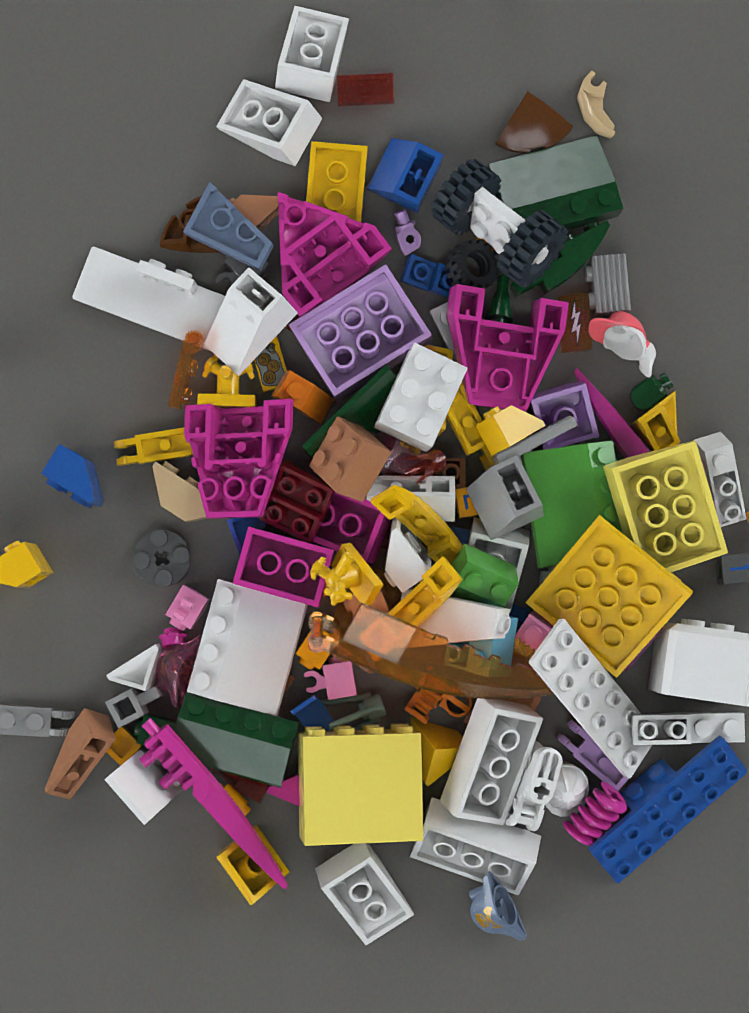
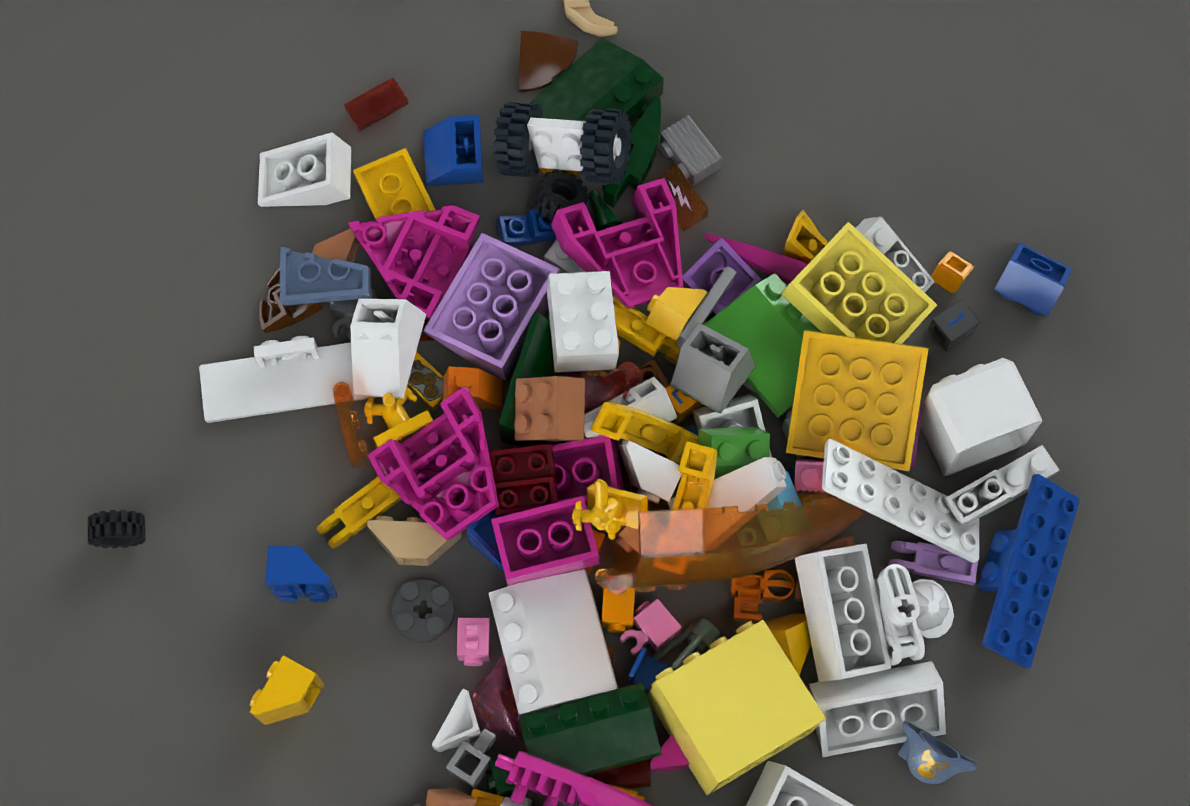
camera: 30 degrees left, 15 degrees down
(172, 636) = (473, 676): dark pink plate -> none
(311, 54) = (311, 99): white slope -> none
(403, 229) = (479, 199): lavender piece -> none
(597, 816) = (969, 611): dark pink piece -> none
(625, 337) = (731, 185): white hair -> none
(650, 392) = (781, 219): dark green arm -> none

